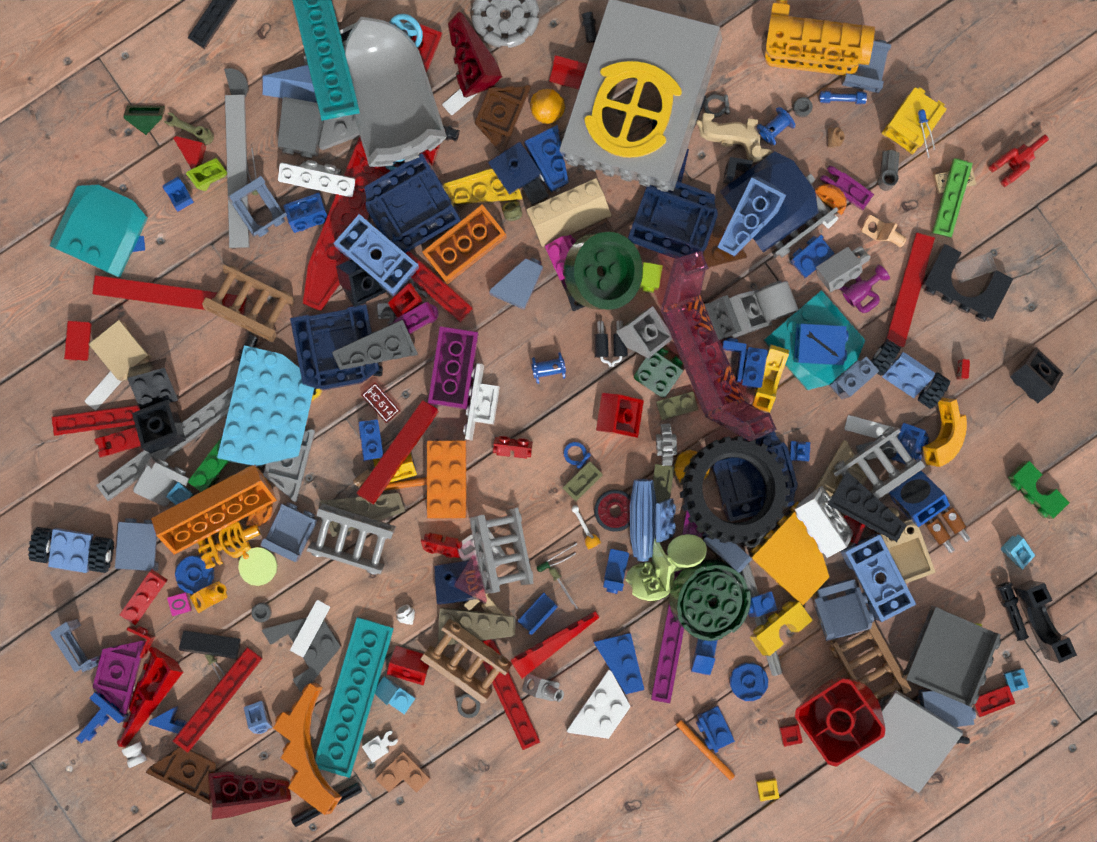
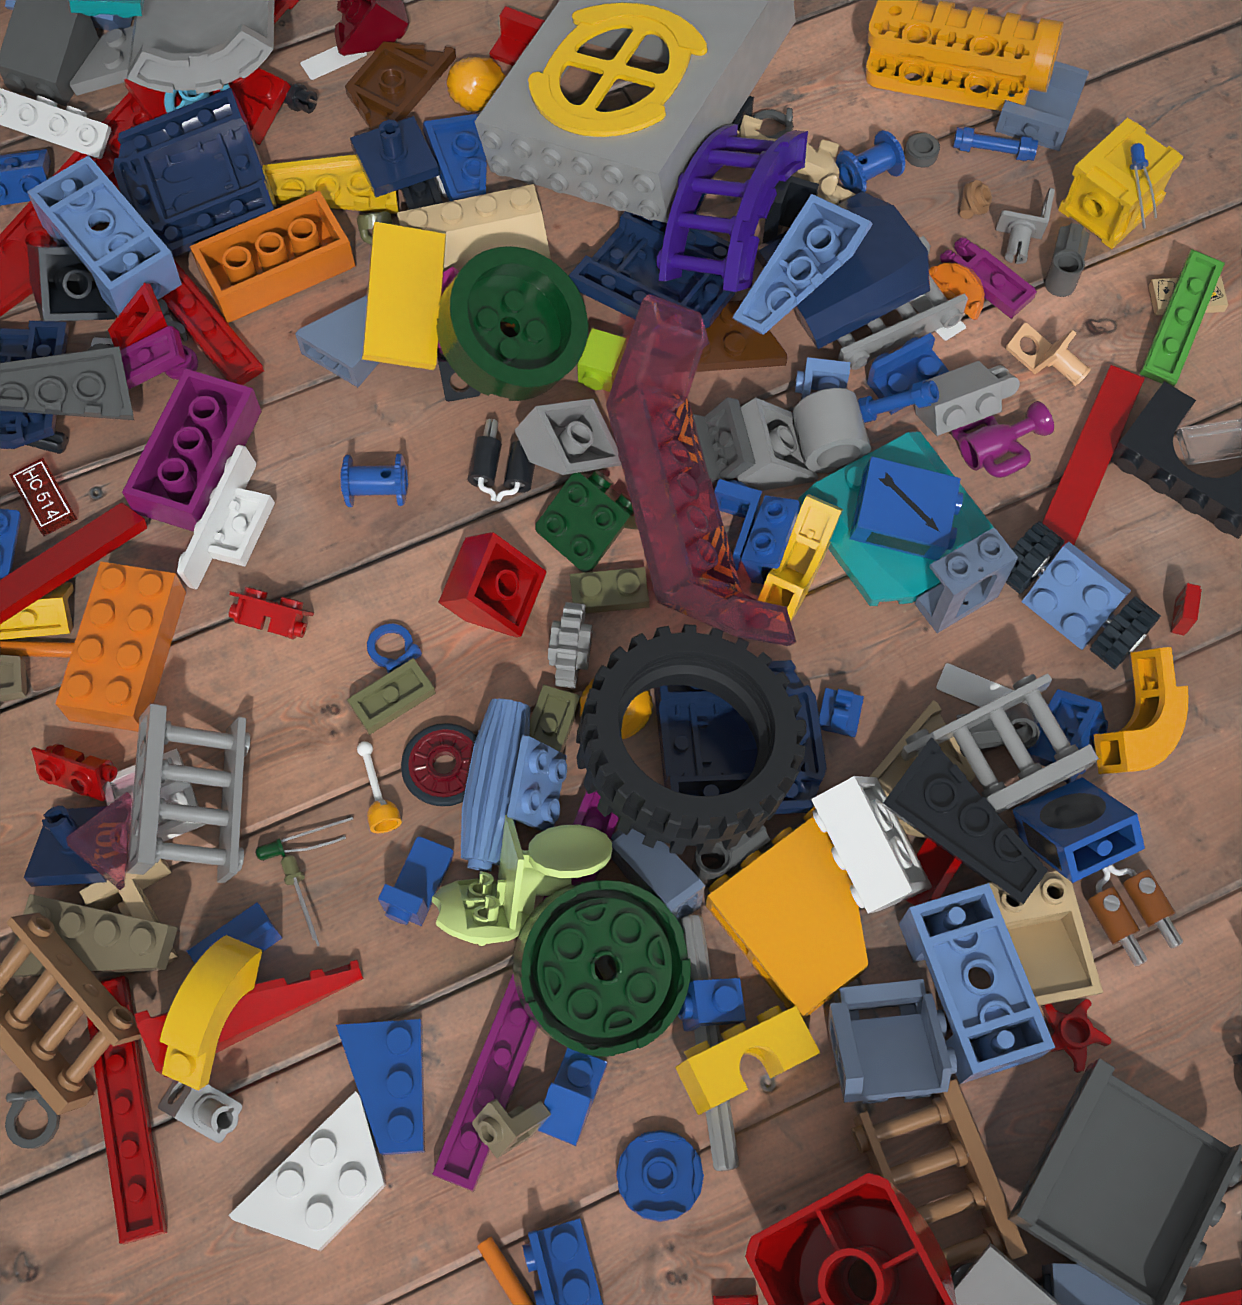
camera: 10 degrees right, 20 degrees down
(541, 650) = (203, 1006): none -> yellow arch
(542, 261) = (403, 296): none -> yellow tile
(681, 676) = (506, 1131): none -> dark tan bracket
(722, 179) = (772, 163): none -> dark purple fence
(769, 267) = (821, 375): none -> medium blue bracket
(820, 278) = (922, 394): none -> blue bar
(862, 155) = (1023, 228): none -> light grey bracket
(924, 589) = (1074, 1032): none -> red animal

